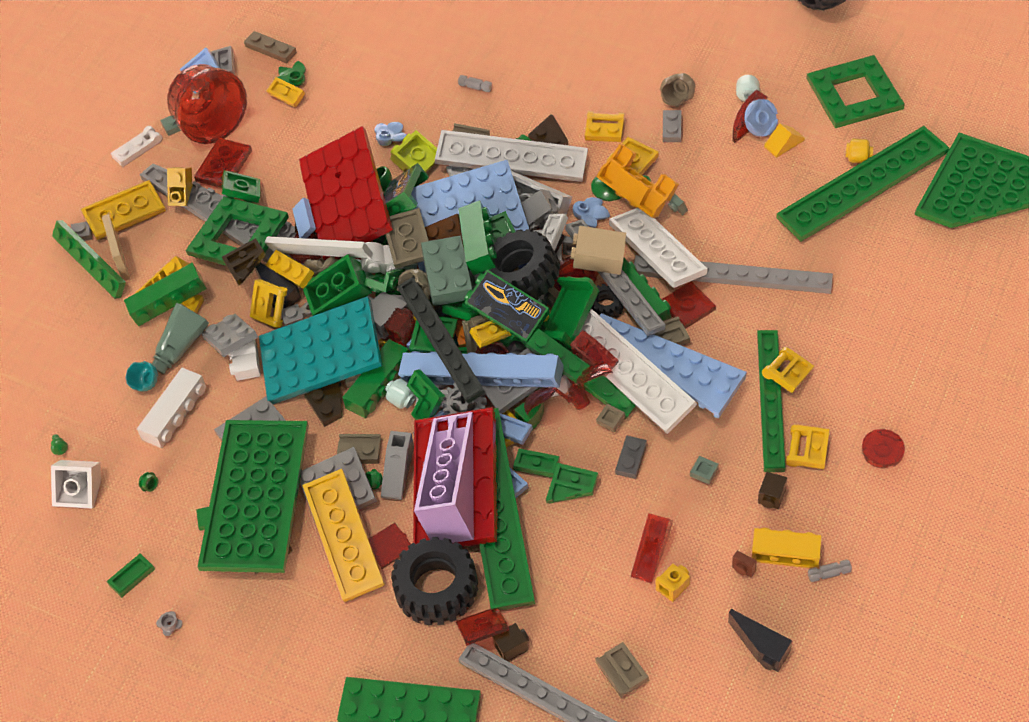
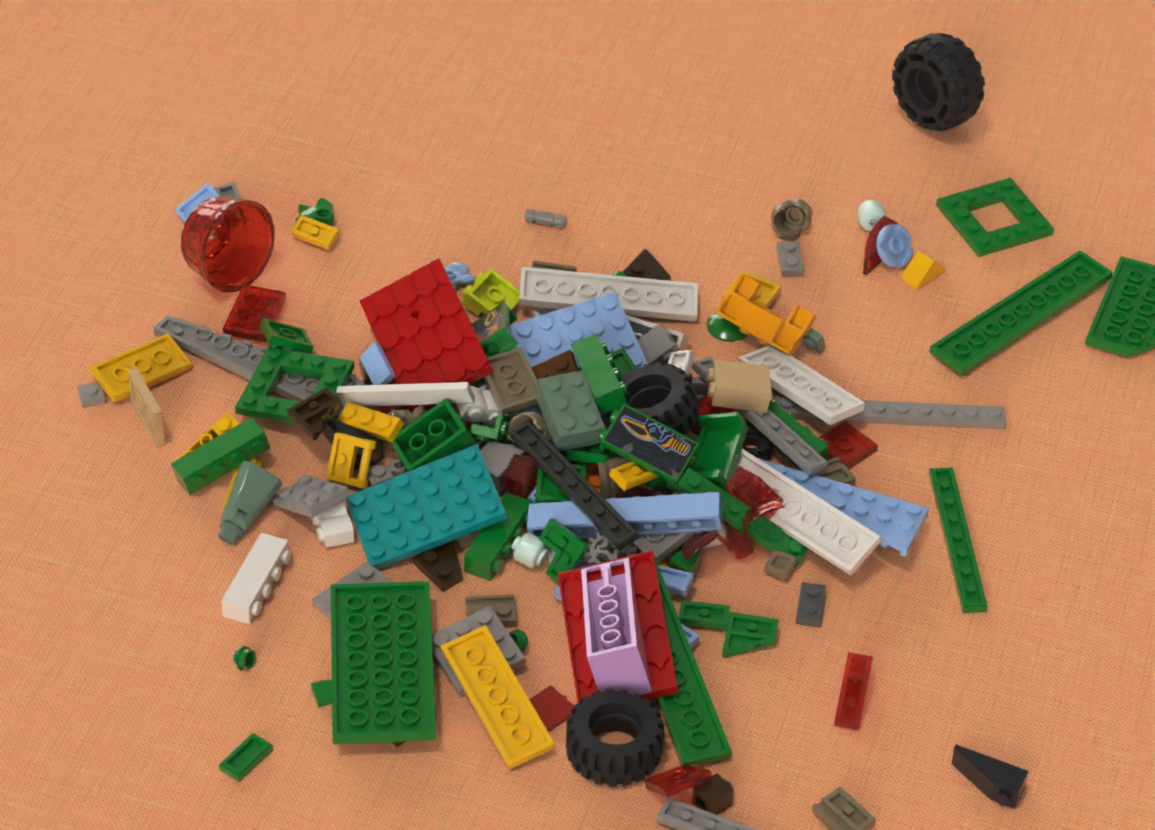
camera: 15 degrees left, 10 degrees down
(58, 445) = (123, 625): green hair -> none
(75, 483) = (156, 664): white slope -> none
(88, 259) = (111, 423): green plate -> none
(137, 146) = (139, 298): white plate -> none
(141, 376) = (211, 545): teal hair -> none
(166, 618) = (302, 798): light grey plate -> none
(170, 125) = (178, 272): sand green plate -> none
(179, 185) = (210, 337): yellow slope -> none
(270, 47) = (281, 183): dark tan plate -> none
(397, 464) = (542, 623): light grey slope -> none
(590, 211) = (712, 347): light blue plate -> none
(604, 131) = (710, 266): yellow plate -> none
(671, 587) = (885, 720): yellow brick -> none
(704, 470) = (897, 612): sand green plate -> none
(743, 564) = (960, 702): copper plate -> none
(772, 490) = (977, 628): dark brown brick -> none
(786, 548) = (1003, 684): yellow brick -> none
(793, 374) = (978, 511): yellow plate -> none
(814, 450) = (1016, 583): yellow plate -> none
(829, 570) = (1054, 705): light grey axle -> none
(858, 150) = (1011, 278): yellow head -> none
(883, 448) = (1091, 581): clear red tile -> none

